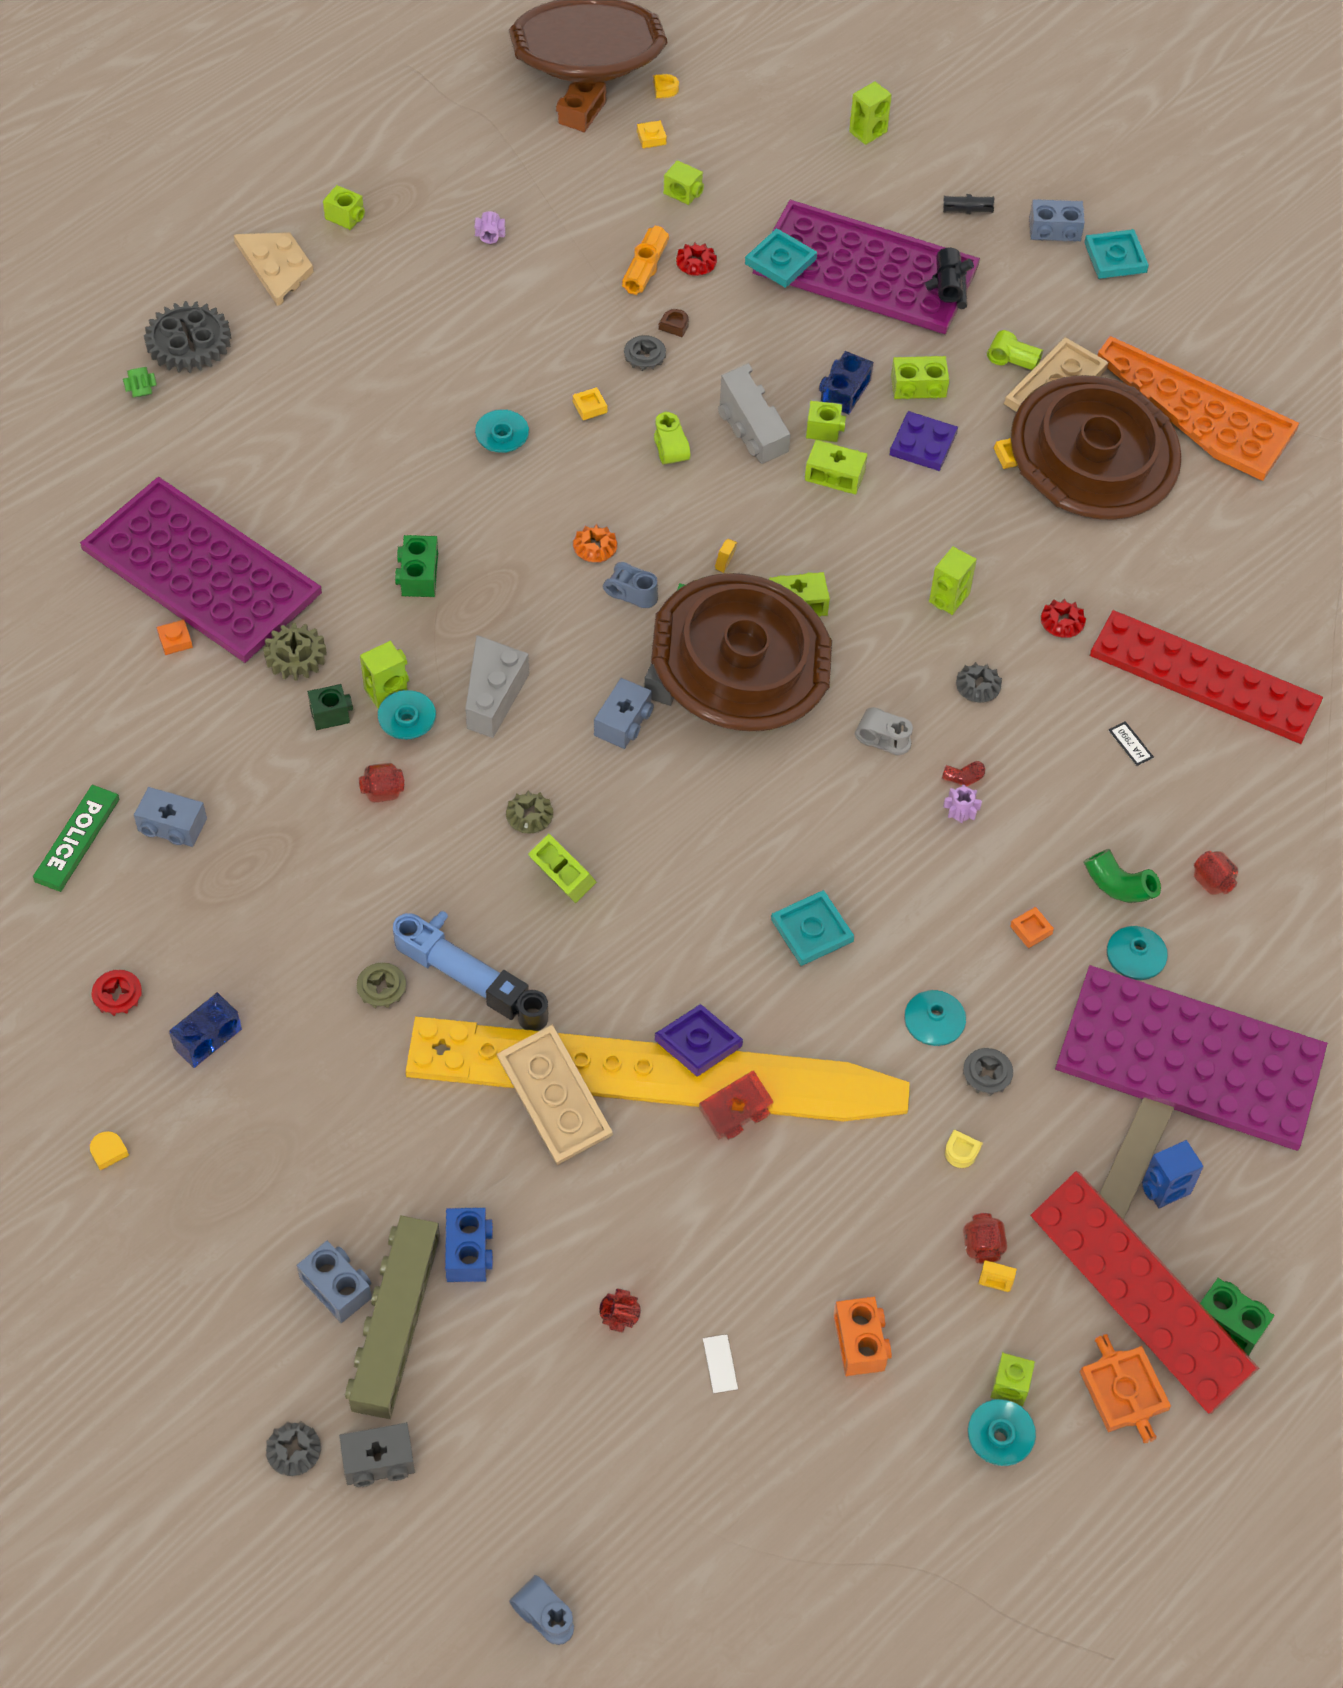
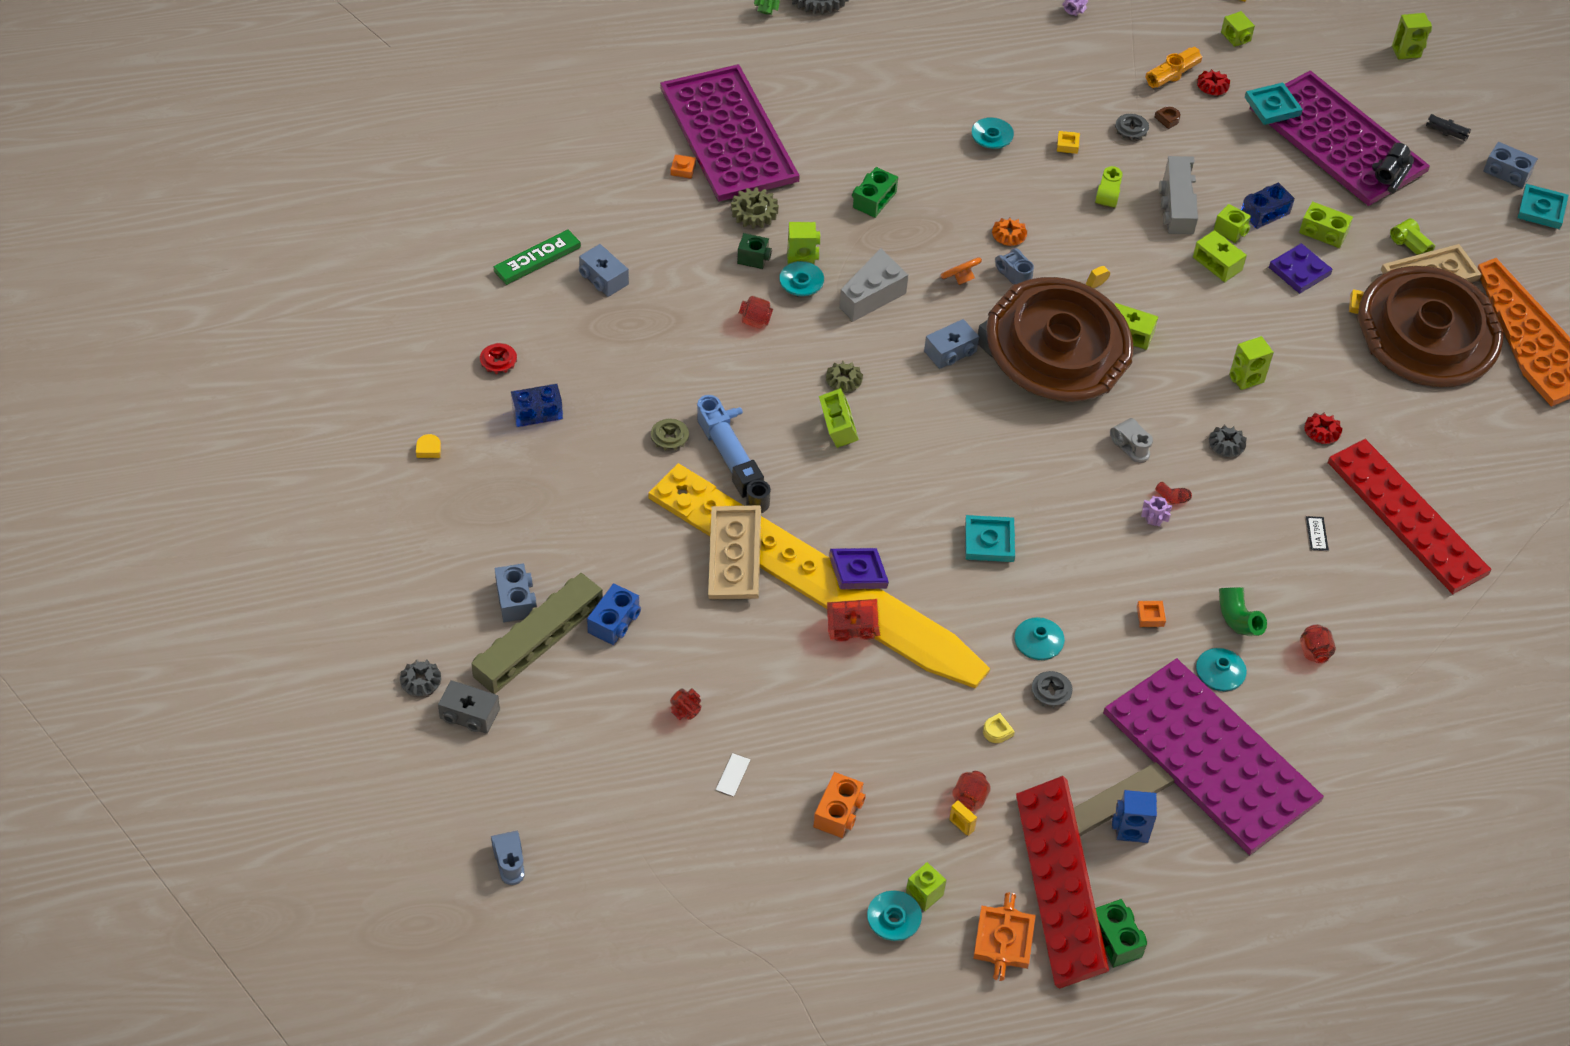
camera: 30 degrees right, 5 degrees down
(578, 617) = (963, 271): none -> orange piece

